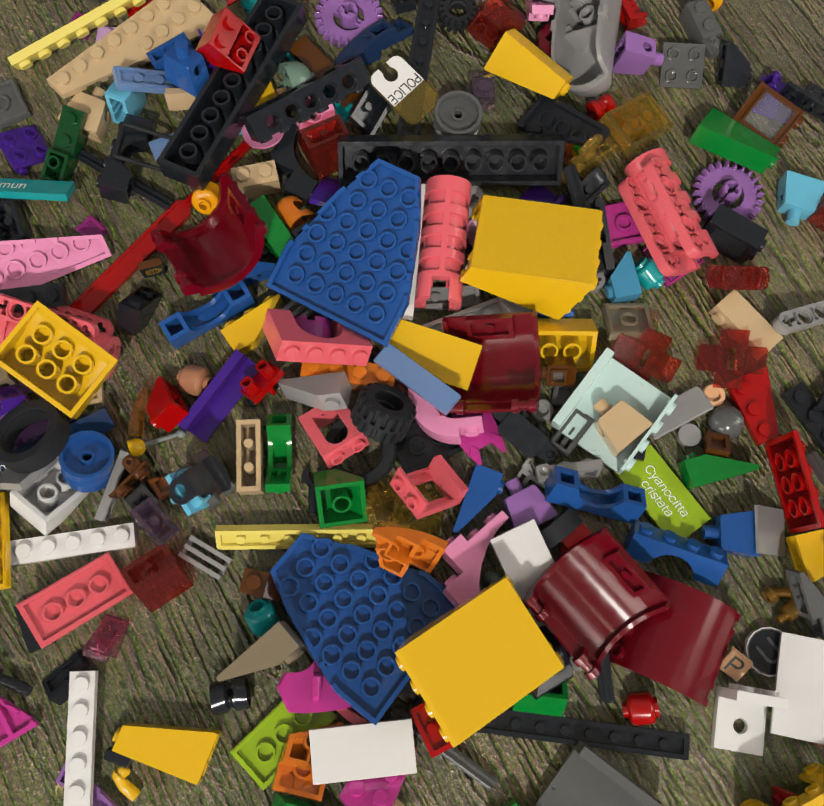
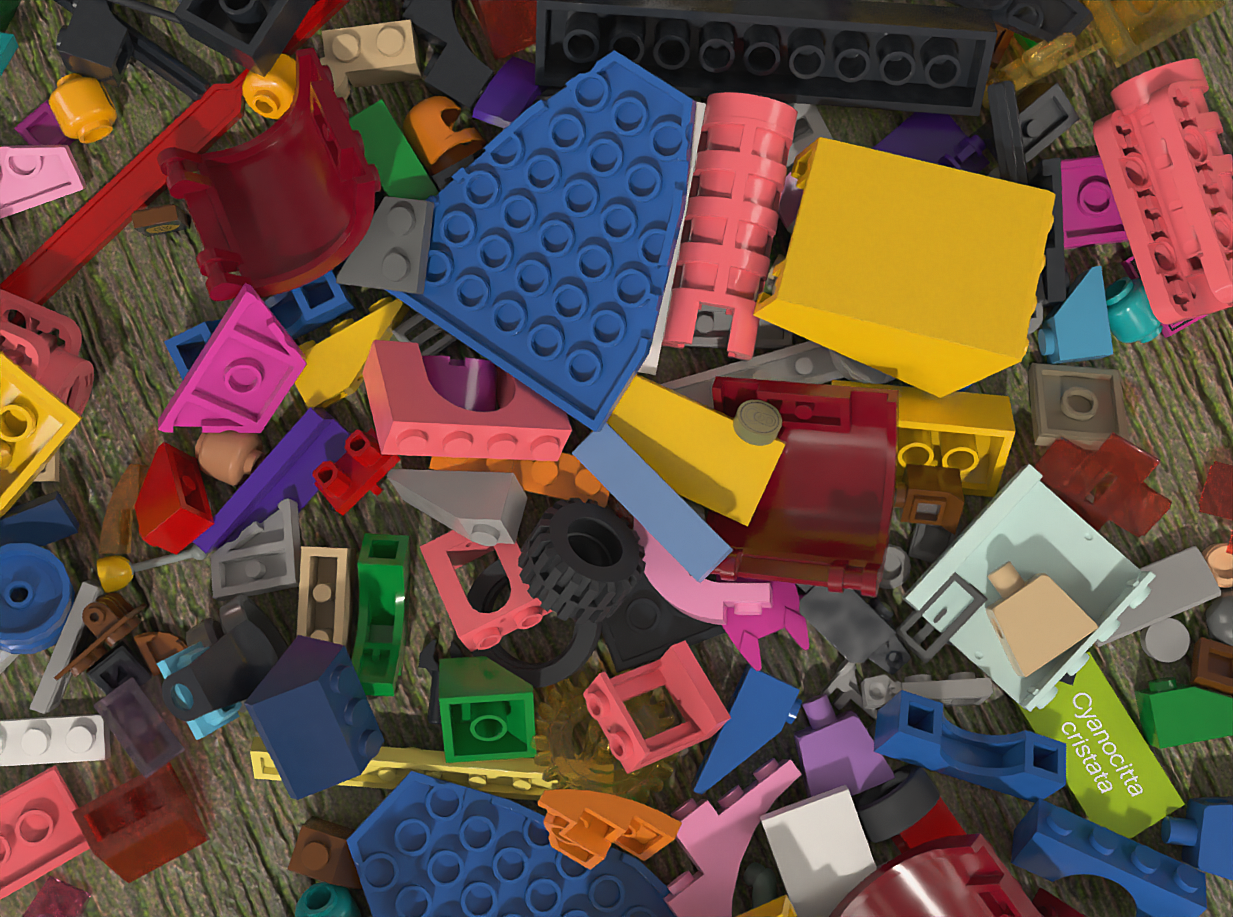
camera: 10 degrees right, 10 degrees up
(110, 216) = (83, 108): none -> light orange head
(137, 309) = (129, 303): black slope -> none
(188, 547) = (223, 805): light grey tile -> none
(198, 334) = (238, 373): none -> dark pink wing
(214, 431) = (261, 558): none -> light grey wing
(250, 503) = (315, 717): none -> dark blue slope
(273, 267) = (393, 249): none -> dark grey wing
(467, 335) = (757, 422): none -> olive tile

